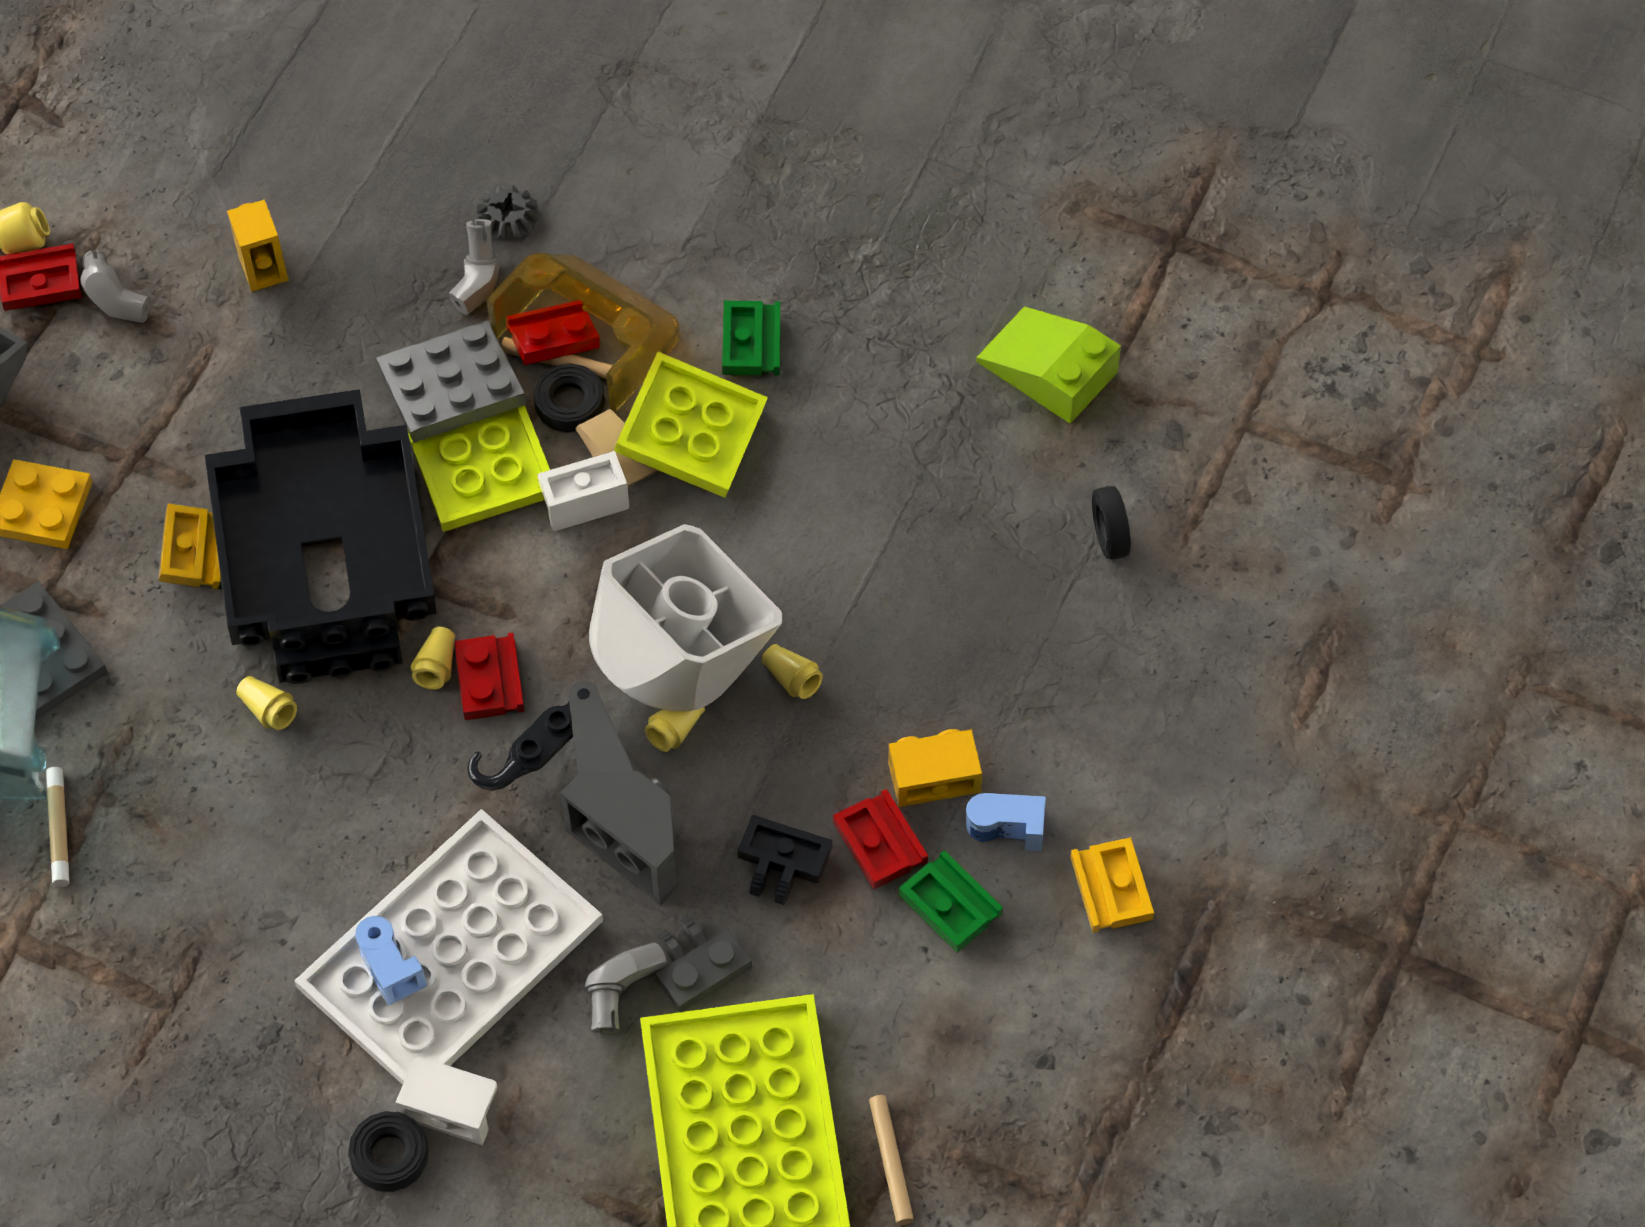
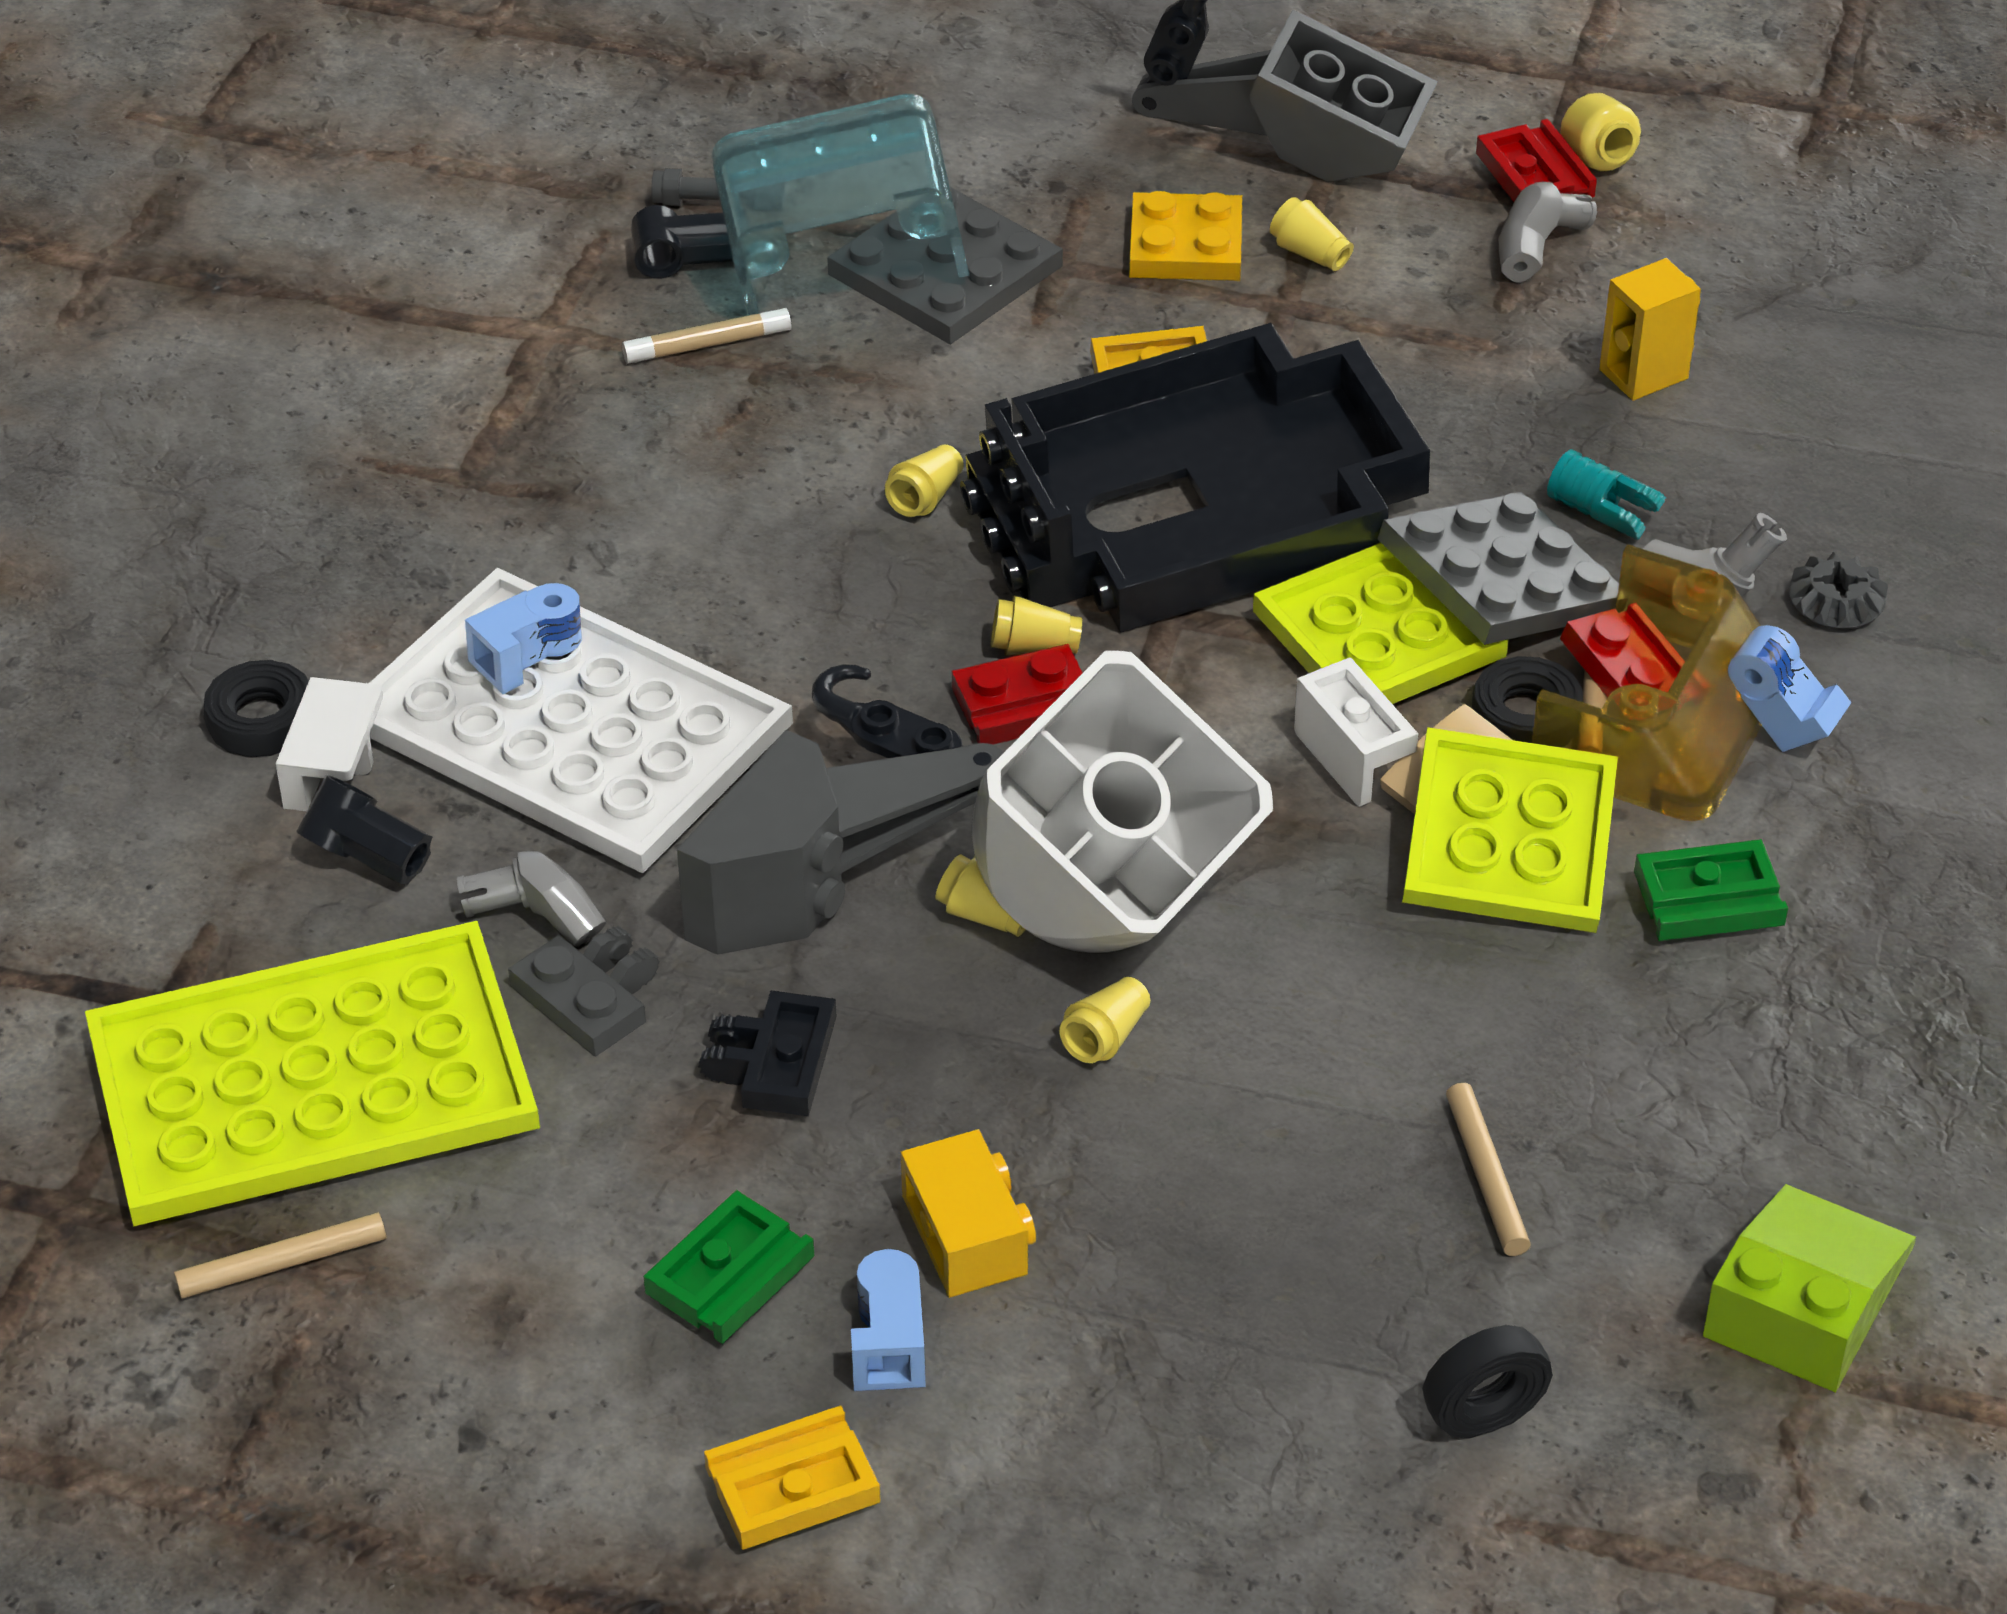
camera: 80 degrees right, 15 degrees down
(71, 425) = (1309, 233): none -> light yellow cone
(387, 315) = (1598, 490): none -> teal hinge
(531, 1090) = (352, 825): none -> black piece
(614, 255) = (1784, 690): none -> light blue leg
(880, 839) = (824, 1164): red plate -> none
(938, 498) = (1488, 1169): none -> tan bar

